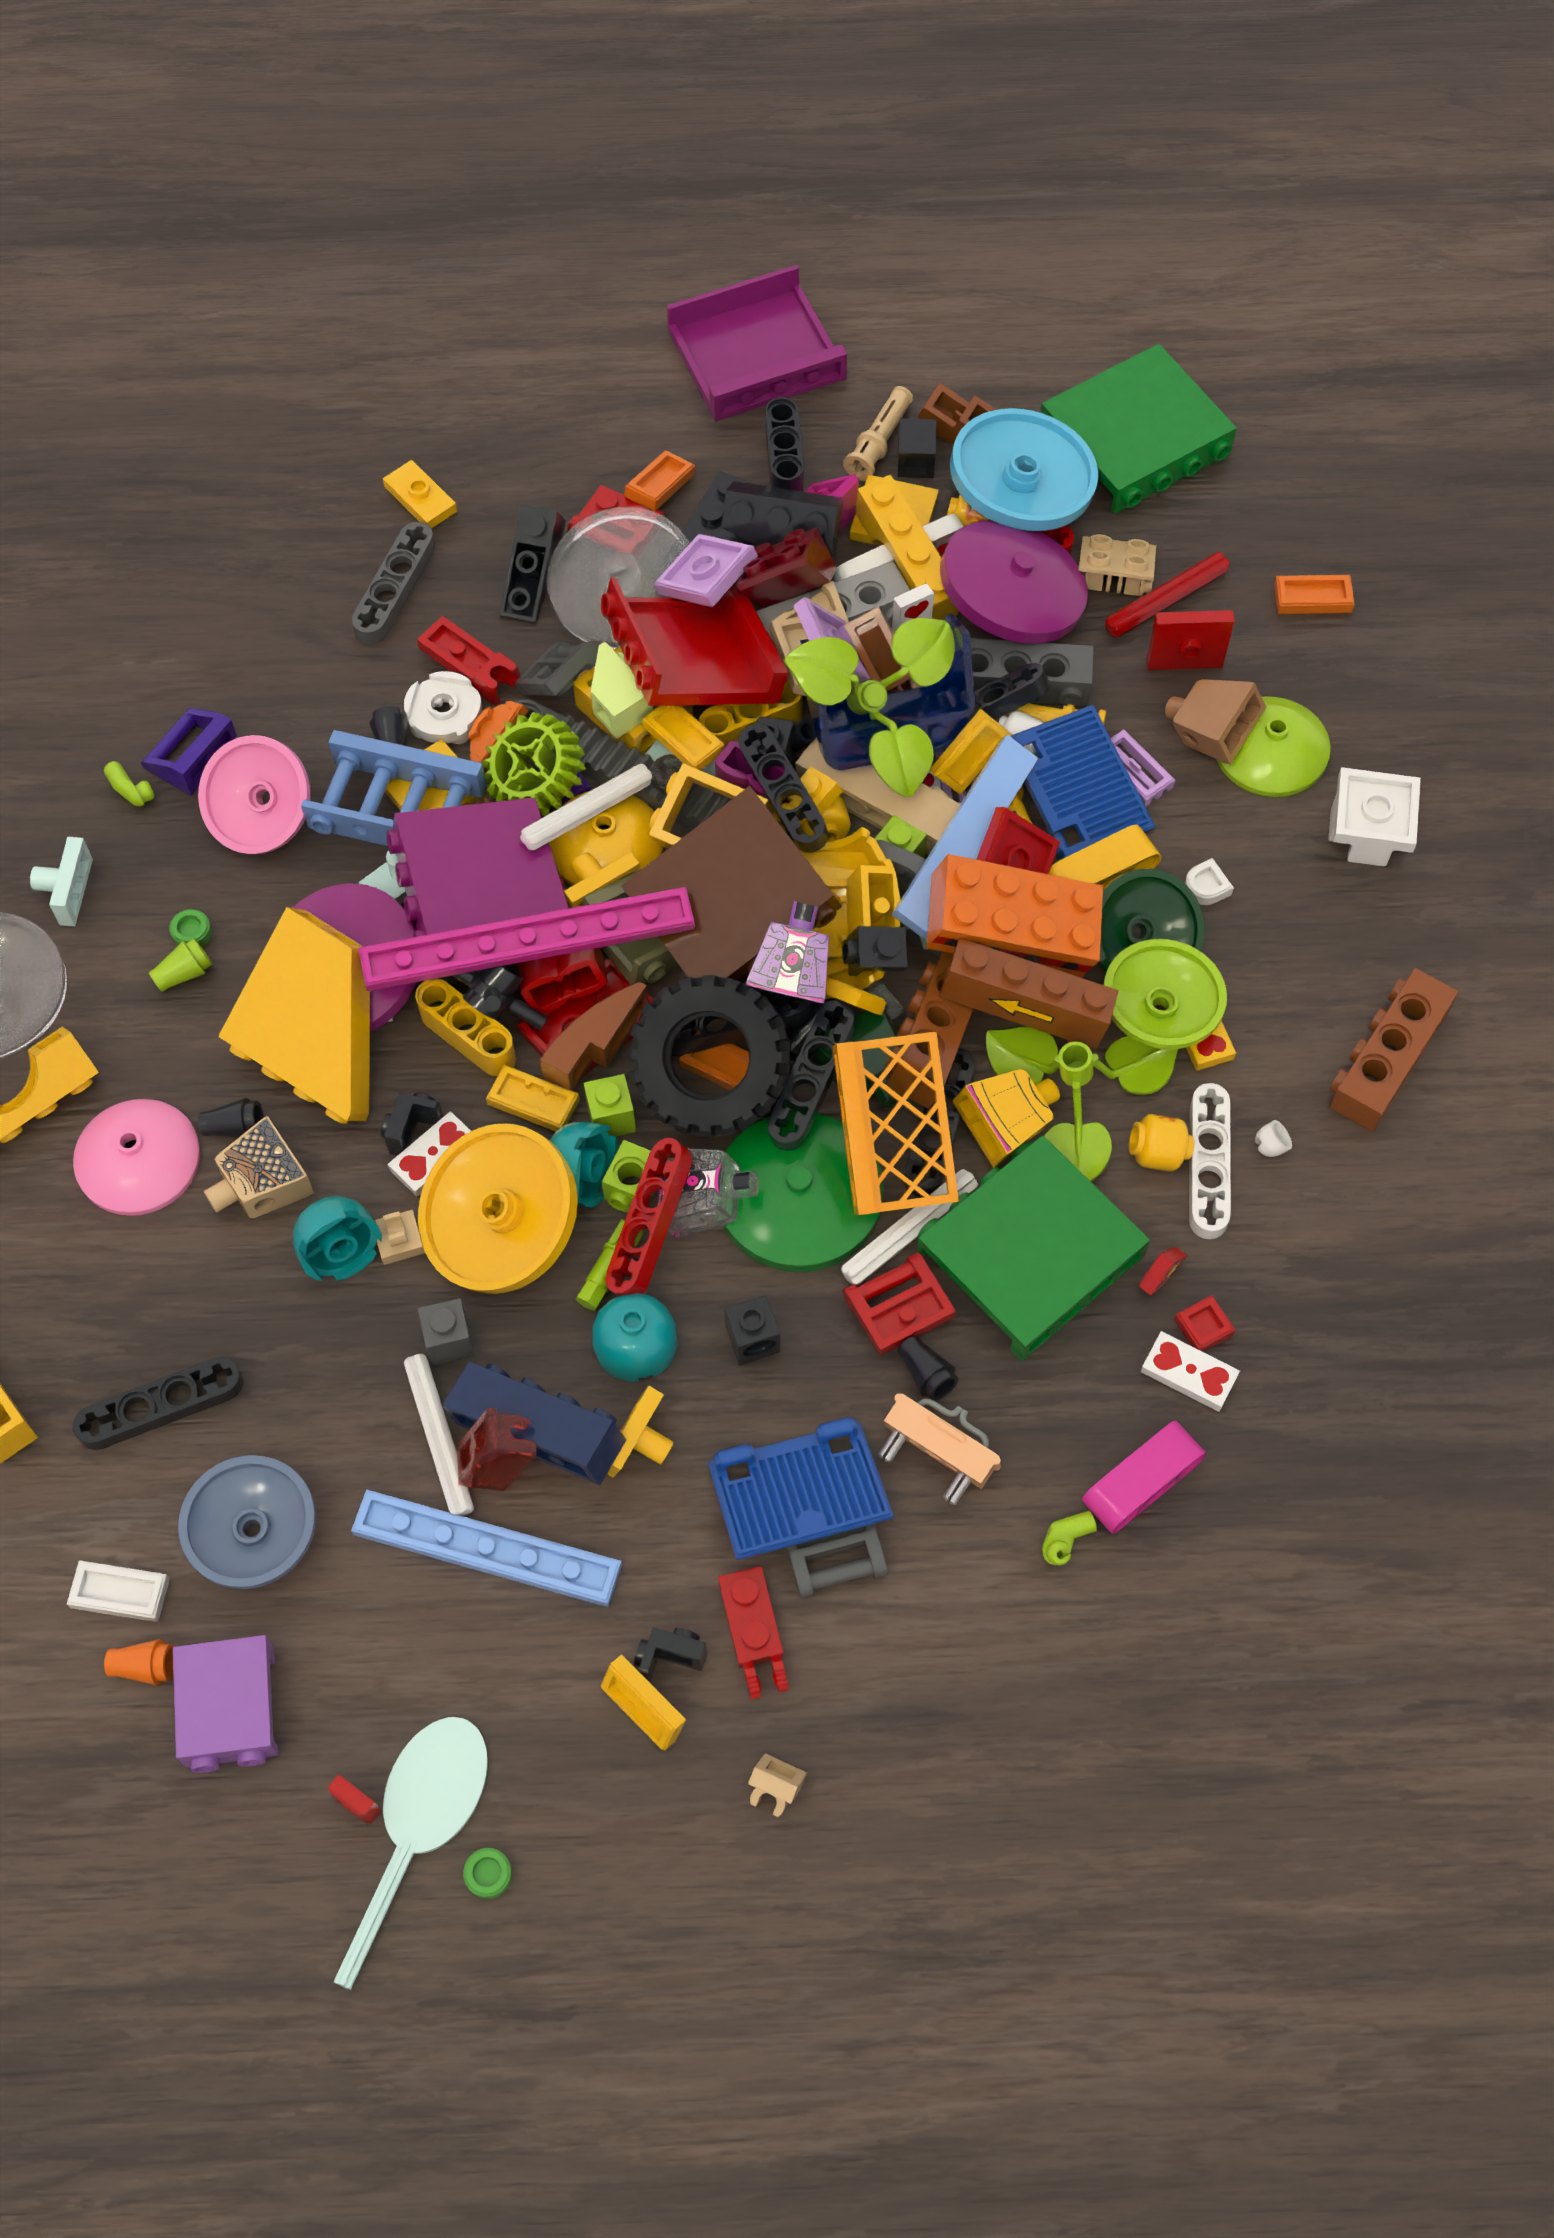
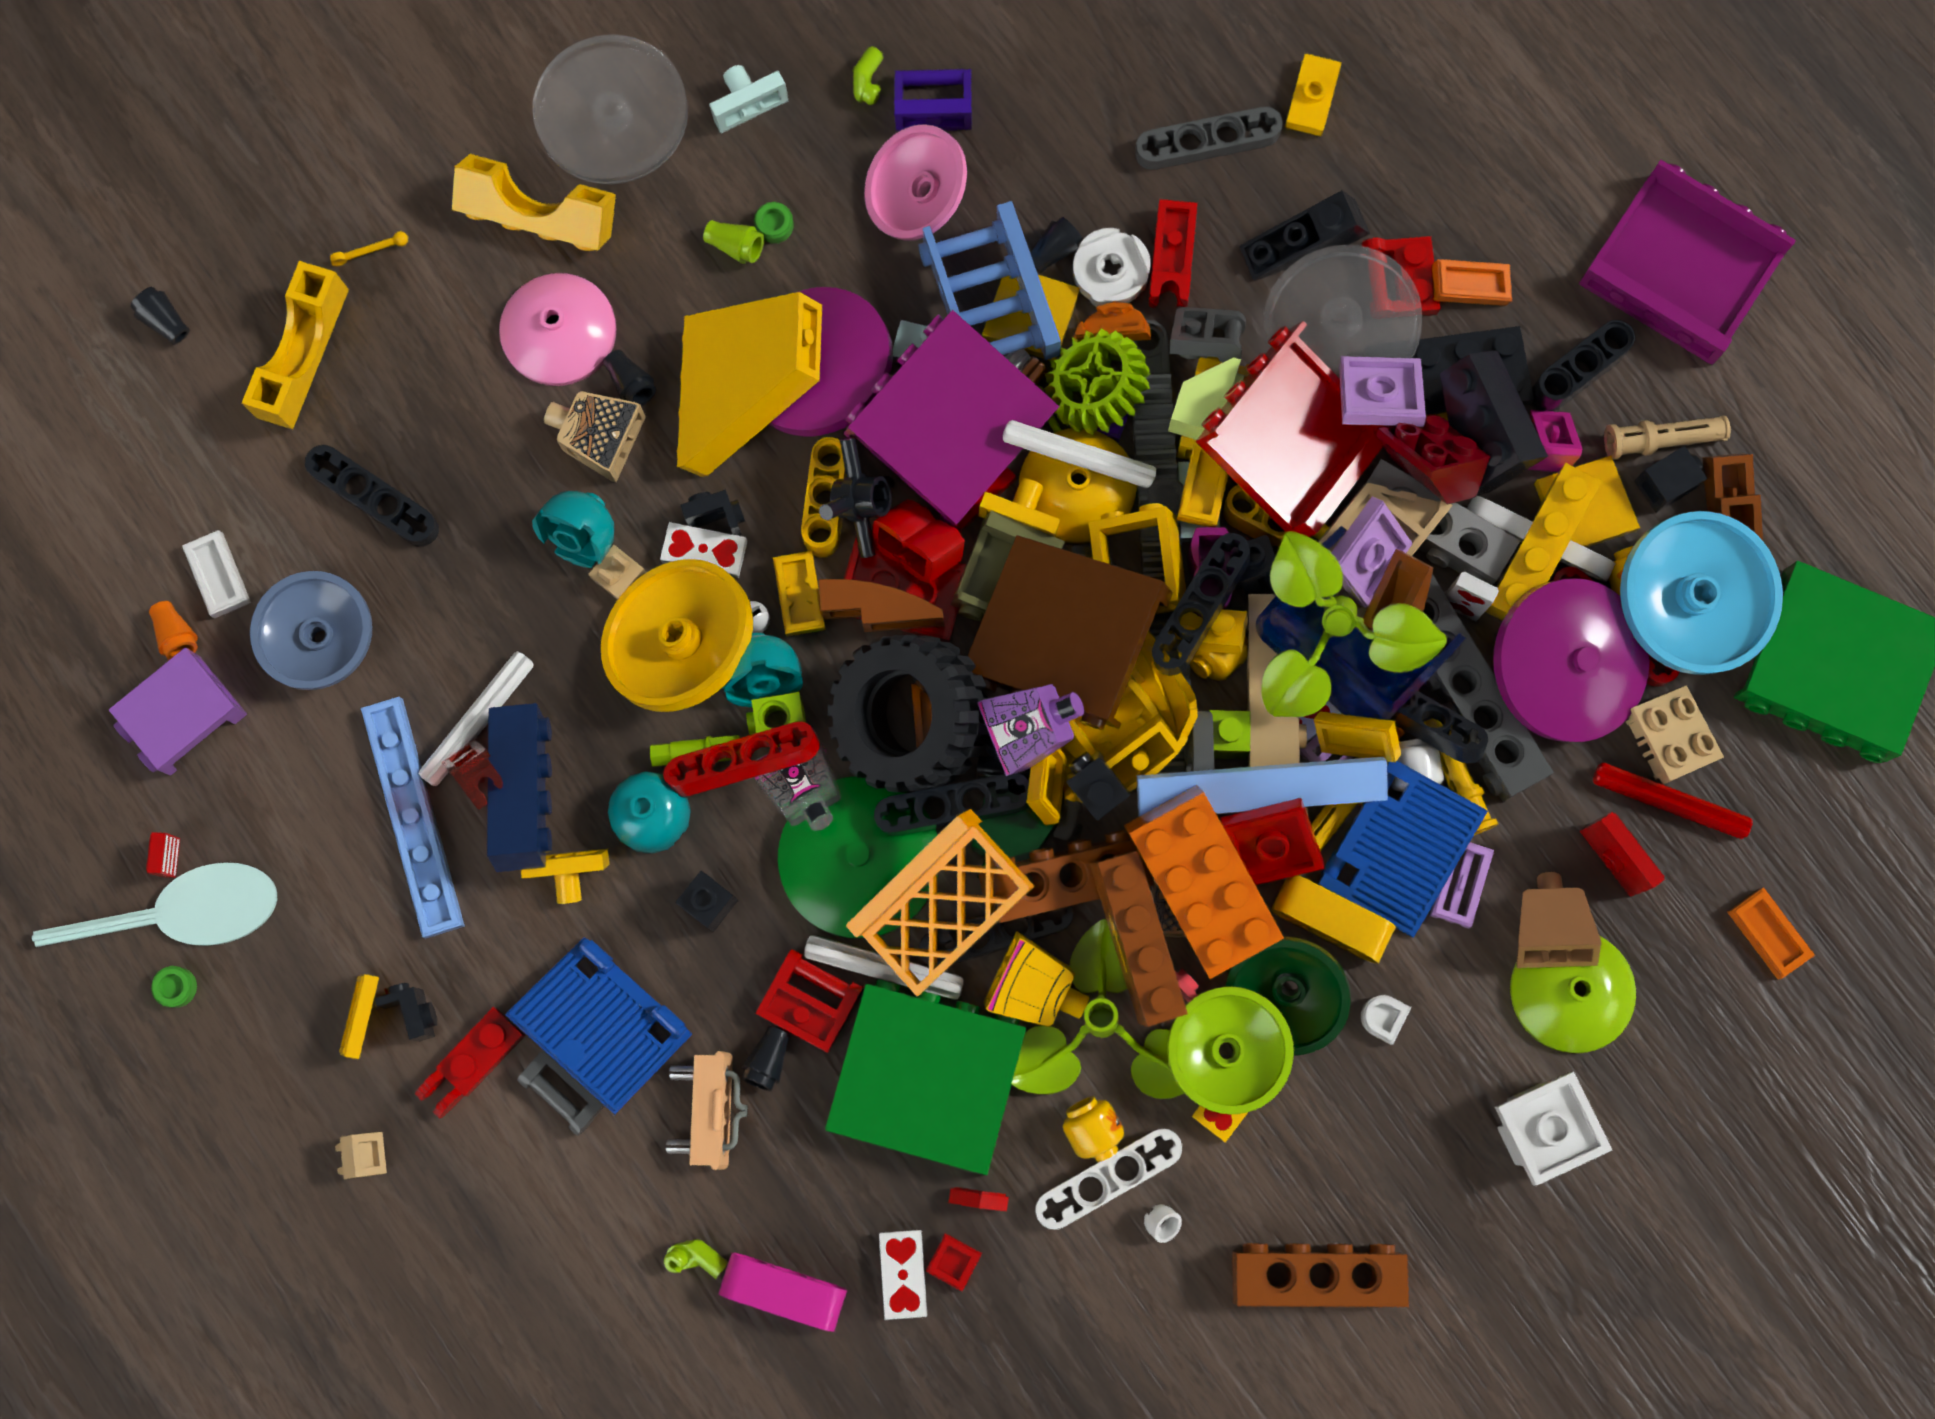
camera: 60 degrees right, 15 degrees up
(446, 1332) = (555, 667): dark grey brick -> none
(526, 938) = (907, 498): dark pink tile -> none
(611, 1104) = (825, 657): lime brick -> none

